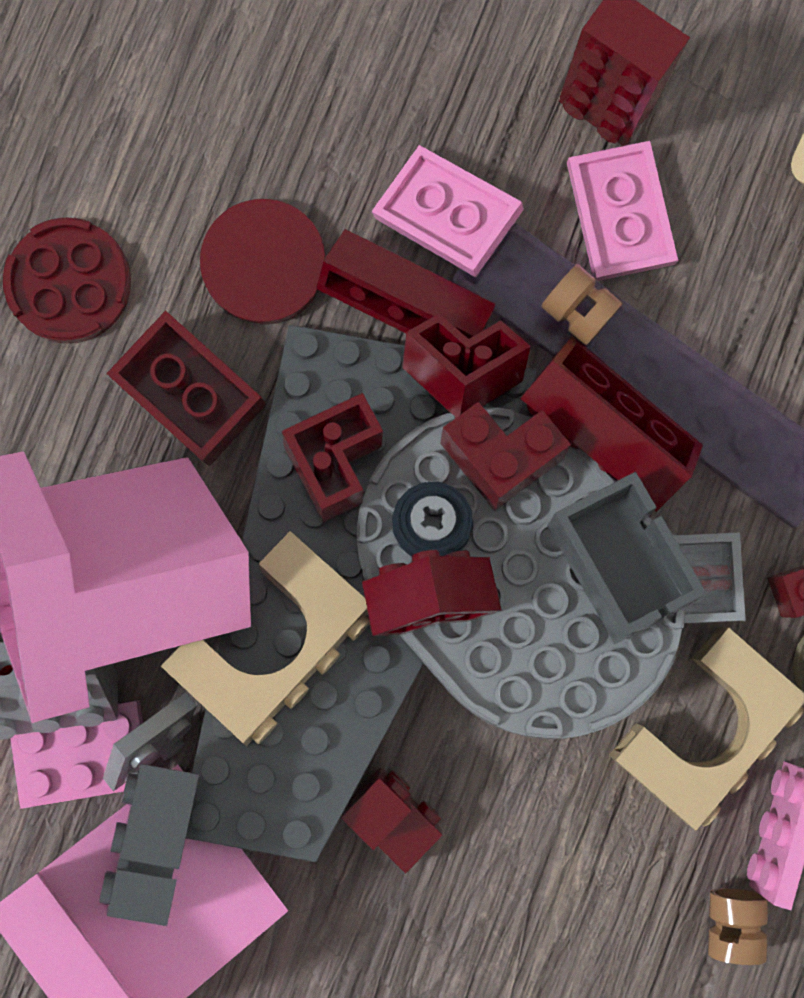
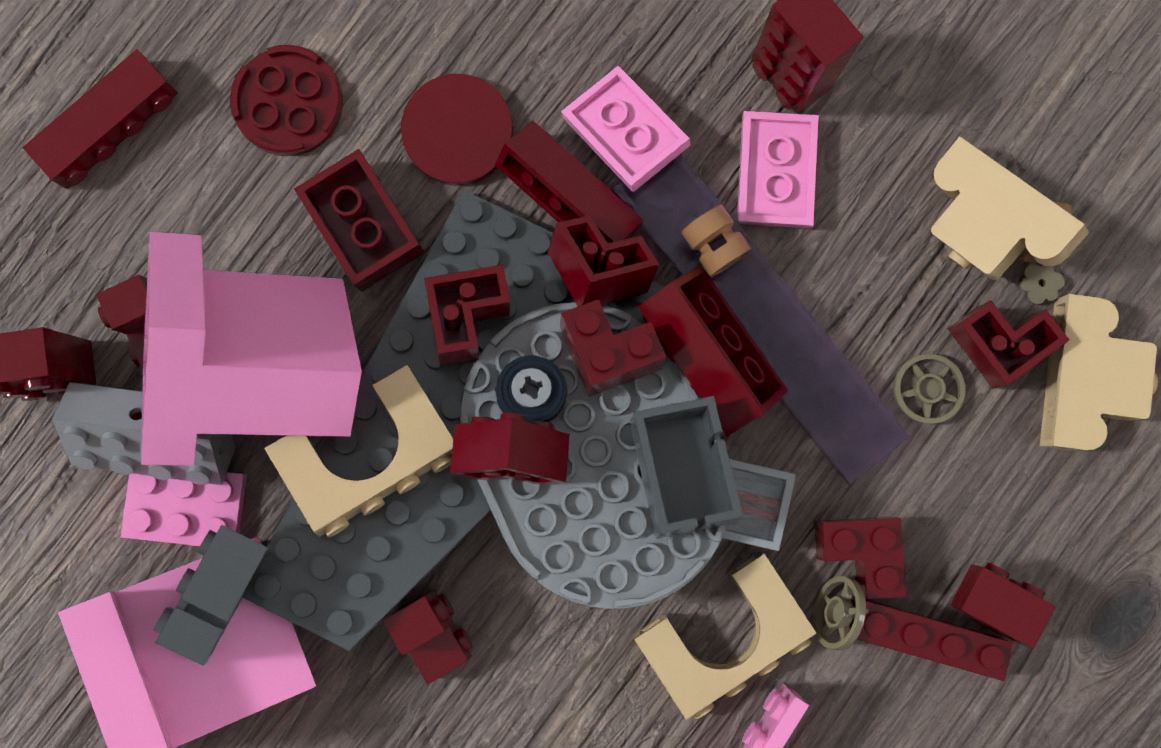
camera: 25 degrees right, 0 degrees up
(153, 739) = (243, 509): light grey plate -> none

